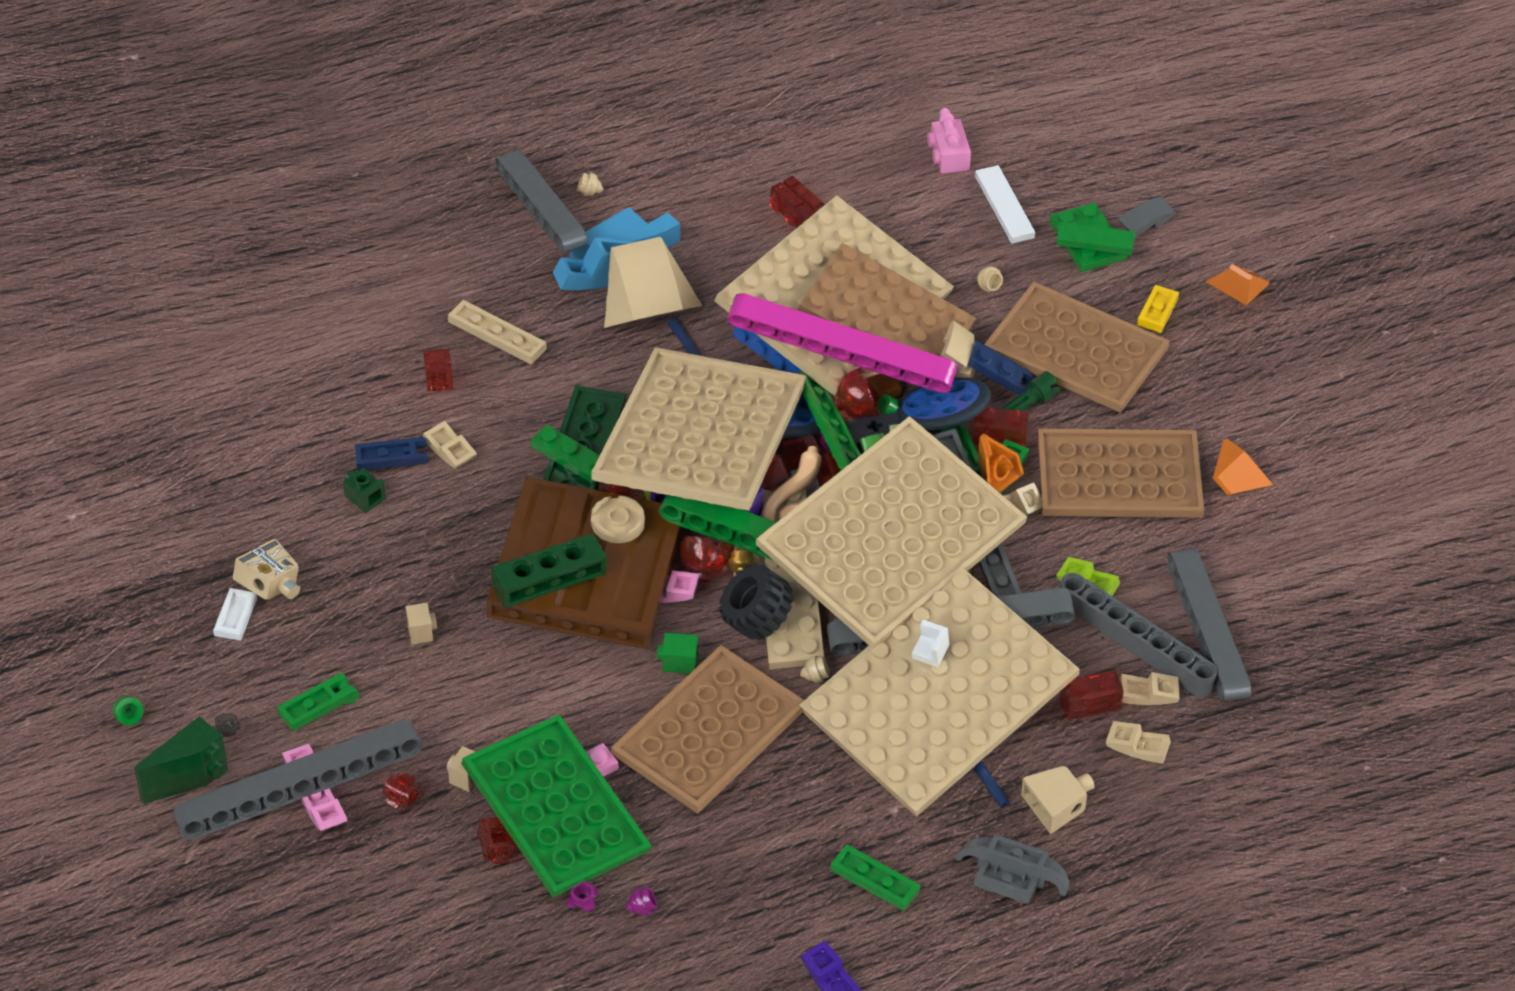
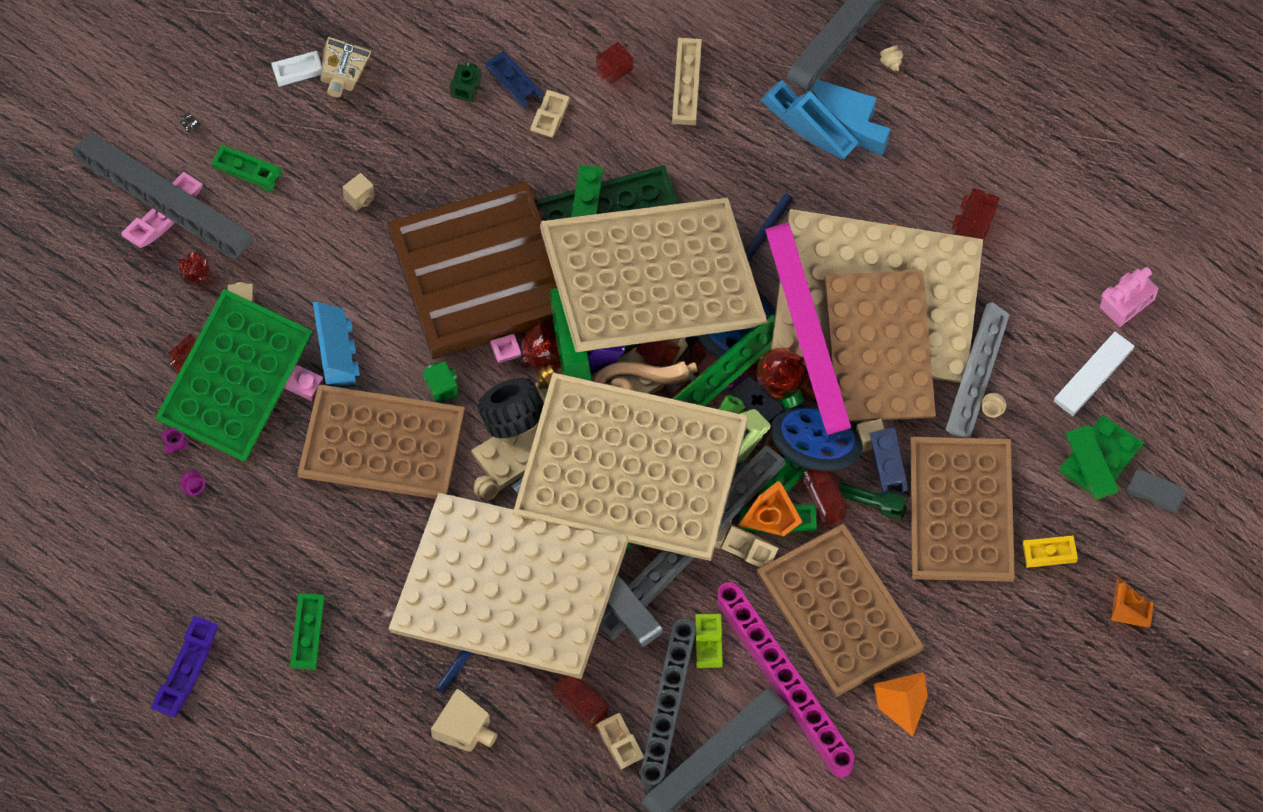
camera: 60 degrees right, 15 degrees up
(127, 710) = (162, 52): green tile -> none
(182, 763) = (131, 113): dark green slope -> none
(548, 570) = (462, 271): dark green brick -> none
(586, 717) = (335, 345): none -> dark azure slope
(617, 519) = (525, 267): tan tile -> none
(645, 283) = (799, 157): tan wedge -> none
(931, 644) = (531, 554): white panel -> none
(958, 280) = (977, 371): none -> light grey plate
(958, 345) = (882, 416): tan slope -> none
(1013, 867) = (373, 726): dark grey plate -> none
(1133, 742) = (559, 759): tan slope -> none
(1159, 538) = (785, 690): none -> dark pink beam

